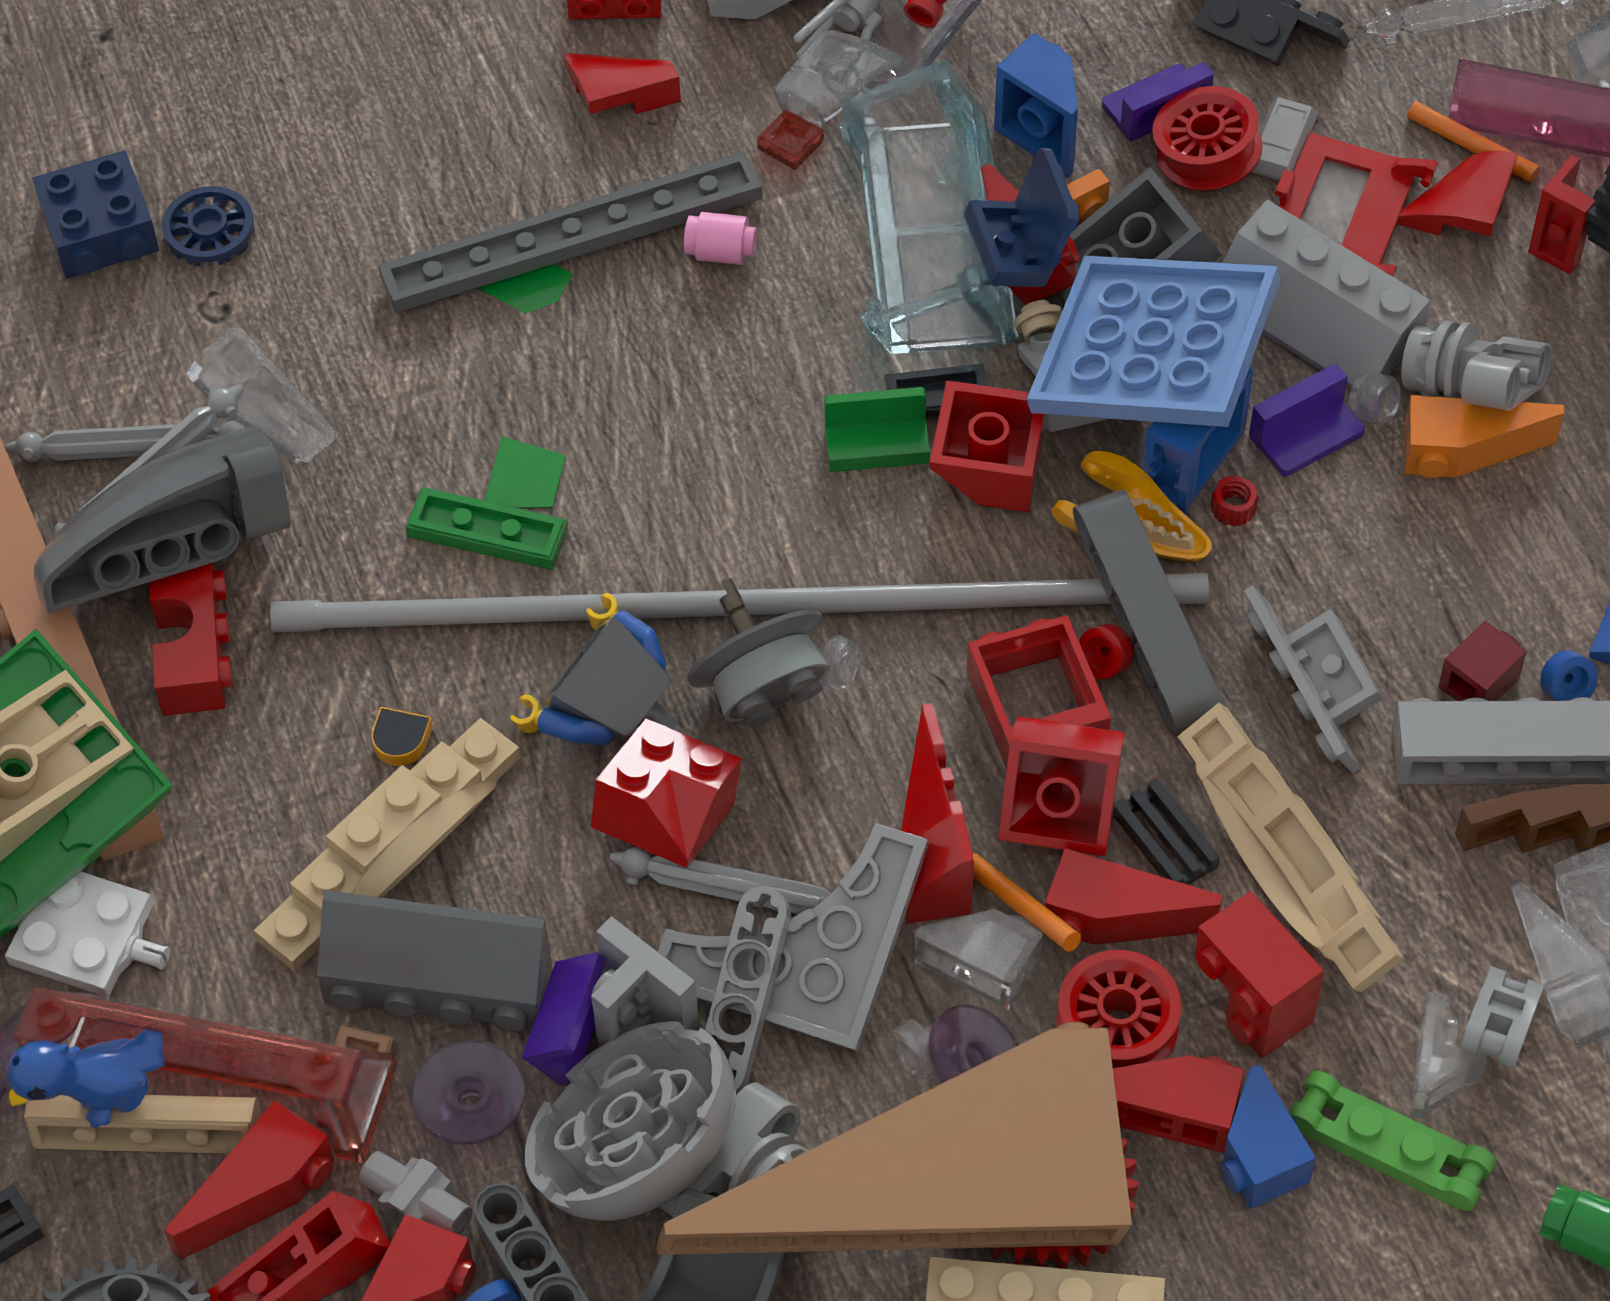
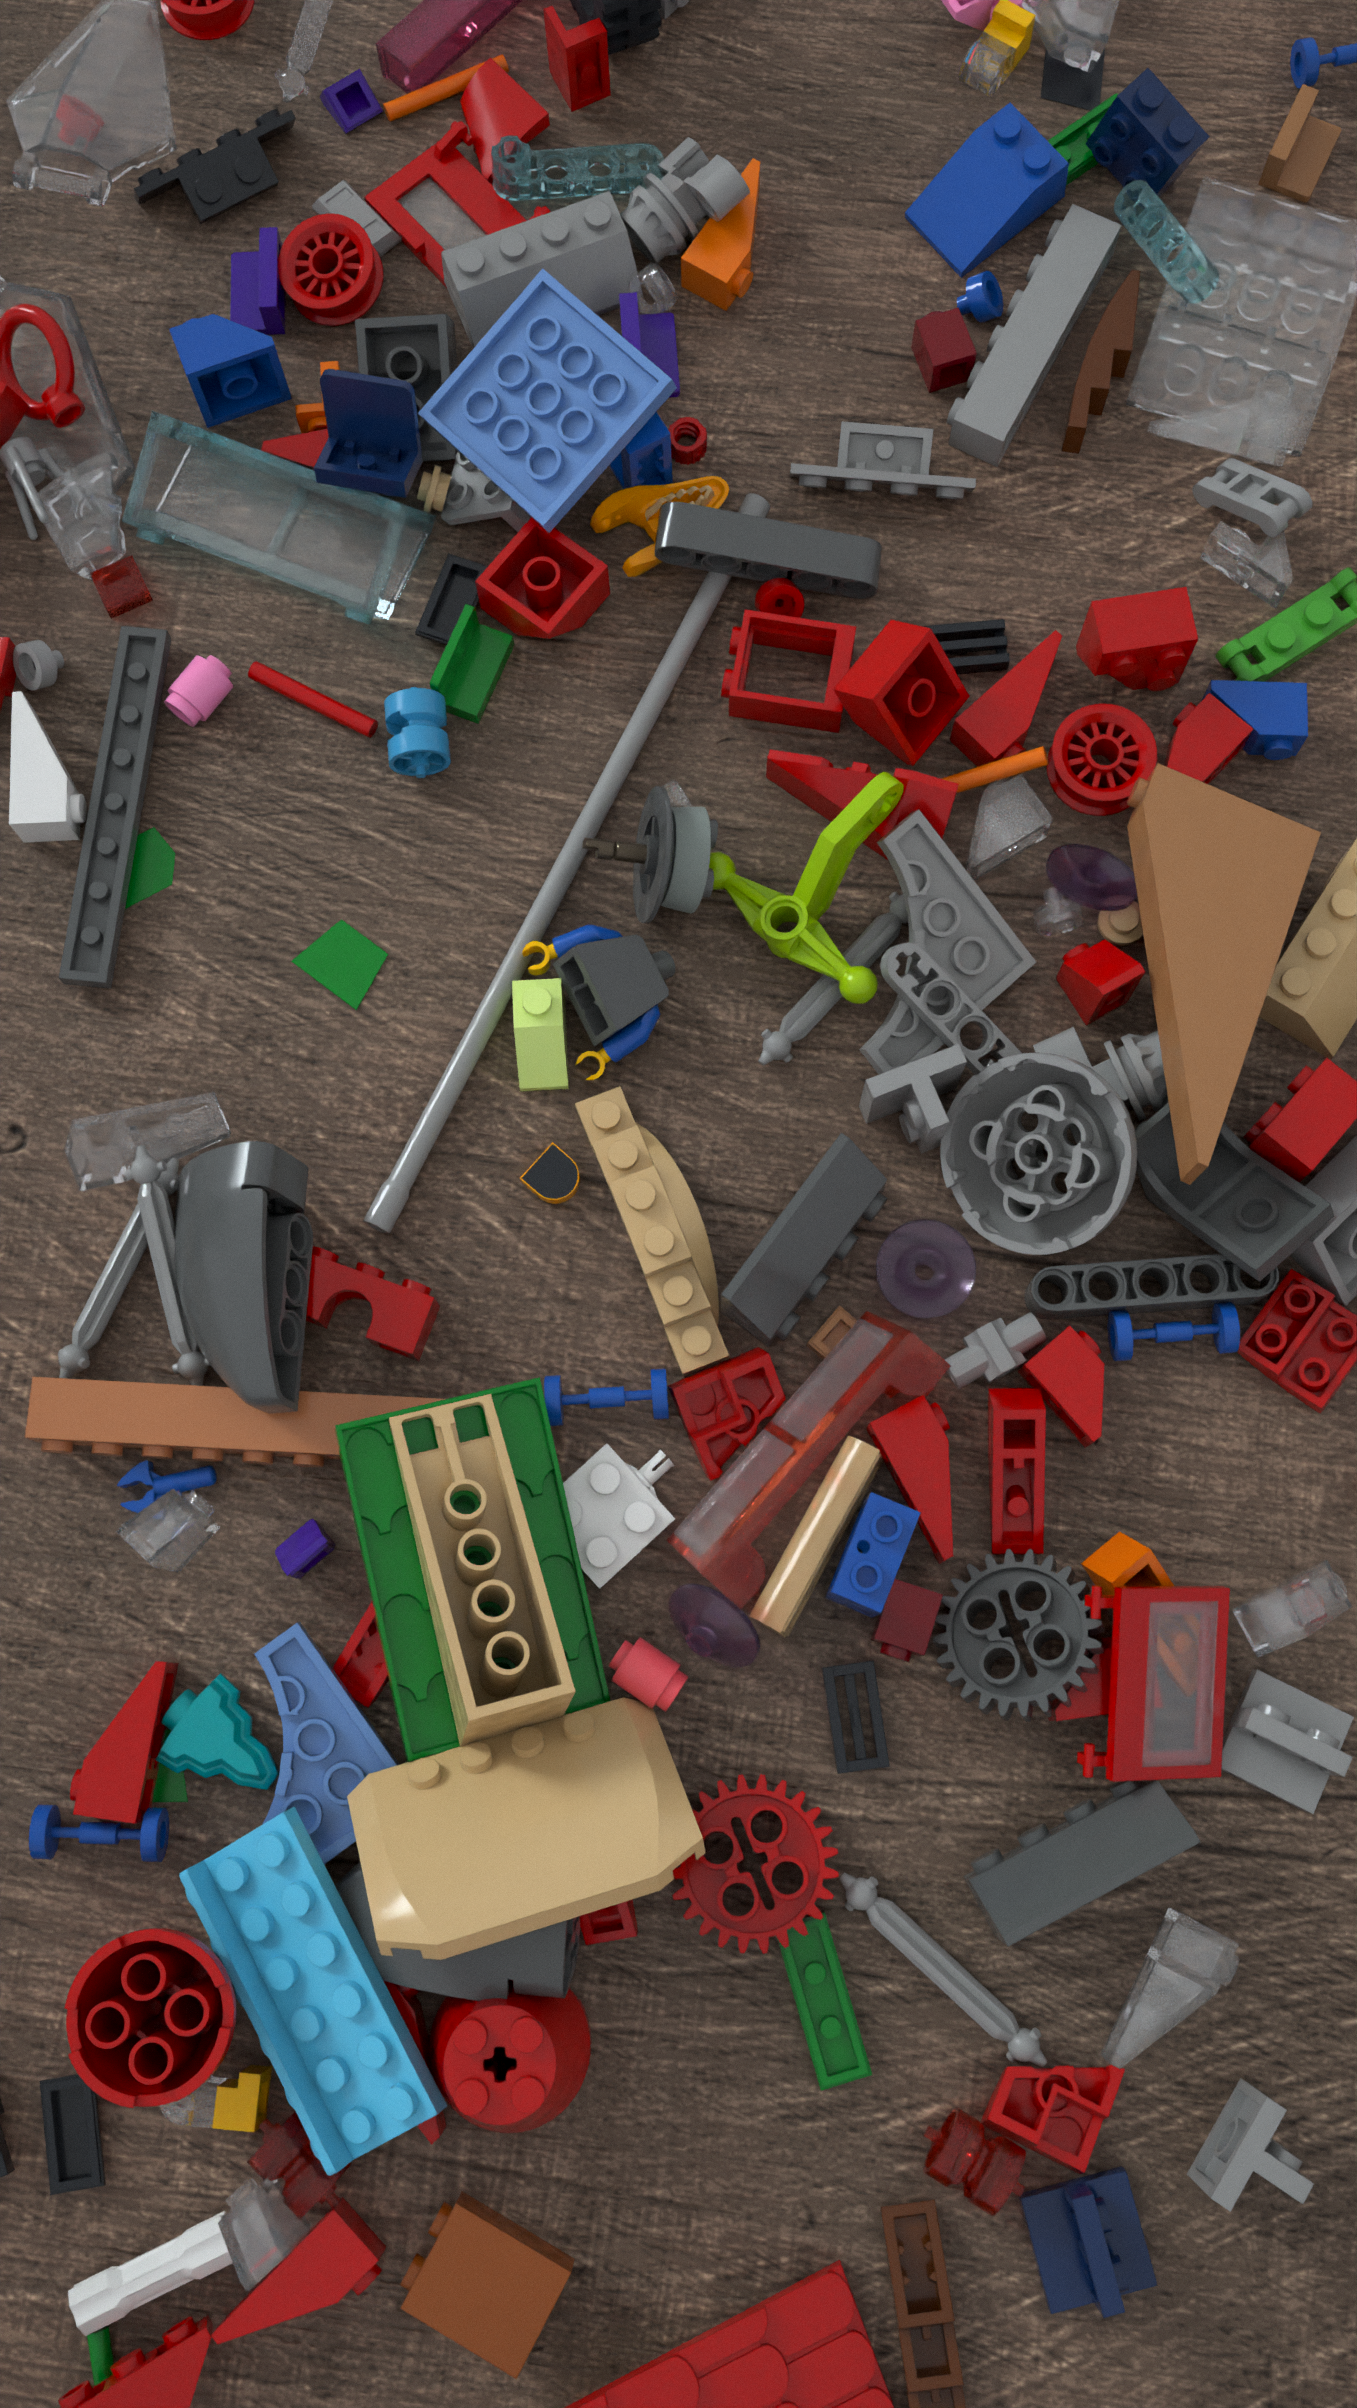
camera: 60 degrees left, 20 degrees up
(93, 1231) = (906, 1621): none -> dark red brick
(96, 1077) = (797, 1554): blue animal -> none
(110, 1152) = (882, 1535): none -> blue window
(220, 916) = (606, 1397): none -> blue wheel
(240, 984) = (726, 1405): none -> red slope
(487, 528) = (382, 1014): green tile -> none
(531, 654) = (540, 1034): none -> yellowish green slope
(564, 163) = (42, 794): none -> white slope
(564, 1017) = (905, 1158): dark purple panel -> none
(665, 792) = (739, 990): red slope -> none
(671, 112) = (36, 664): none -> light grey tile
(769, 331) = (312, 699): none -> red bar
(773, 807) = (808, 941): none -> lime piece
(786, 414) = (418, 741): none -> dark azure wheel
(857, 1097) = (1098, 979): none -> red slope
(1288, 850) = (1041, 566): tan piece -> none
(1402, 77) = (351, 101): none -> dark purple slope
(1417, 226) = (515, 161): none -> clear light blue beam

